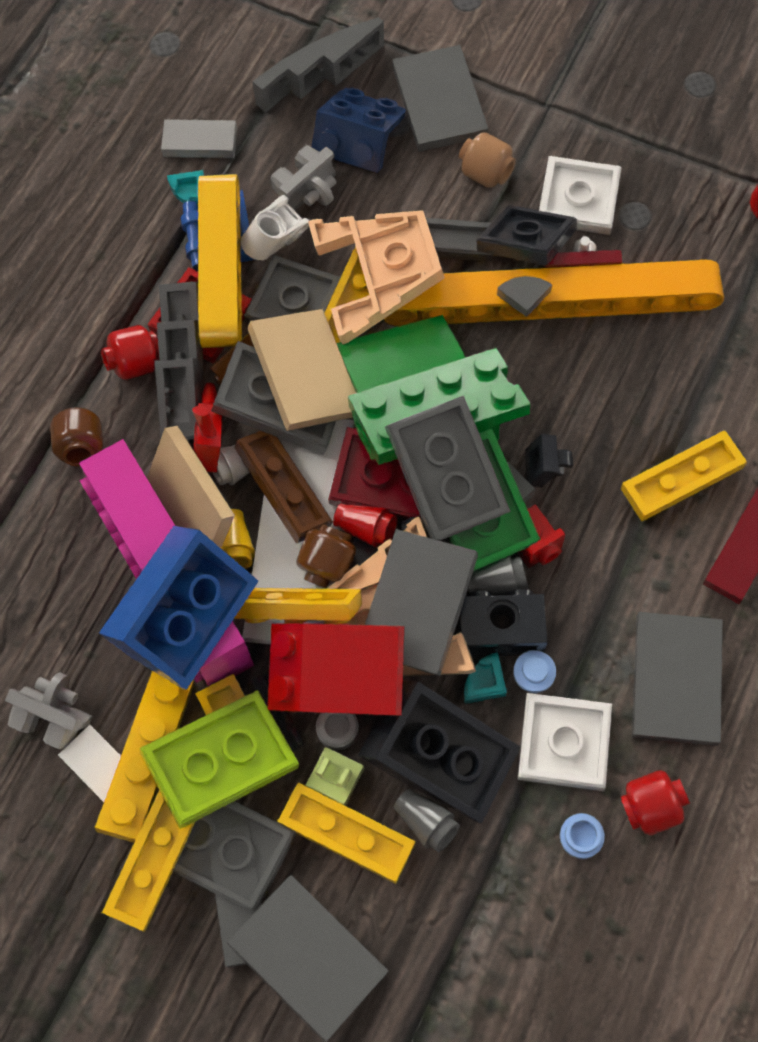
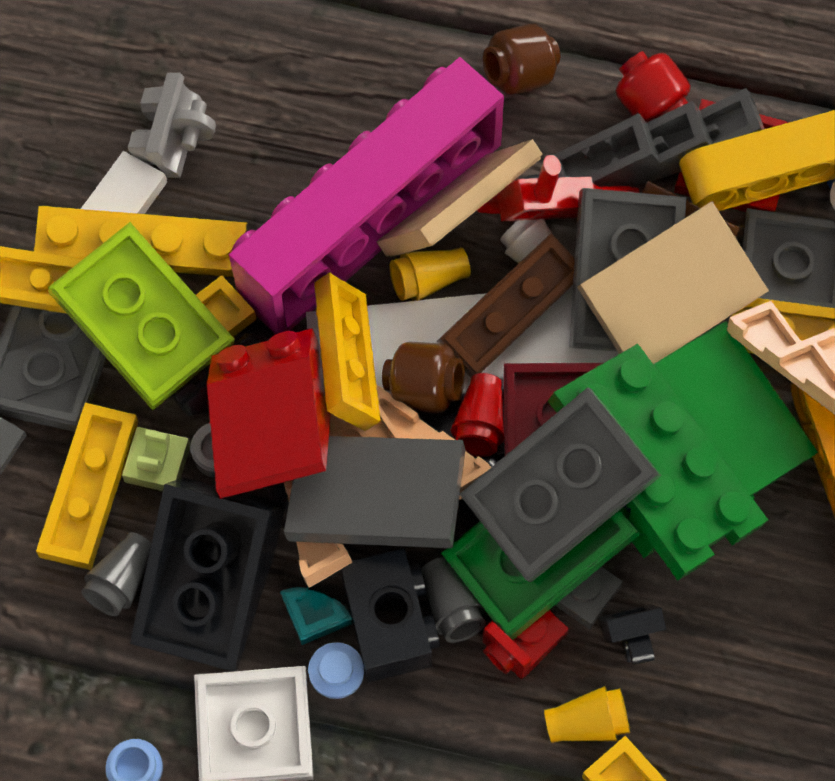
camera: 75 degrees right, 0 degrees up
(179, 606) = (291, 208): blue slope -> none
(603, 503) = (590, 717): none -> yellow cone

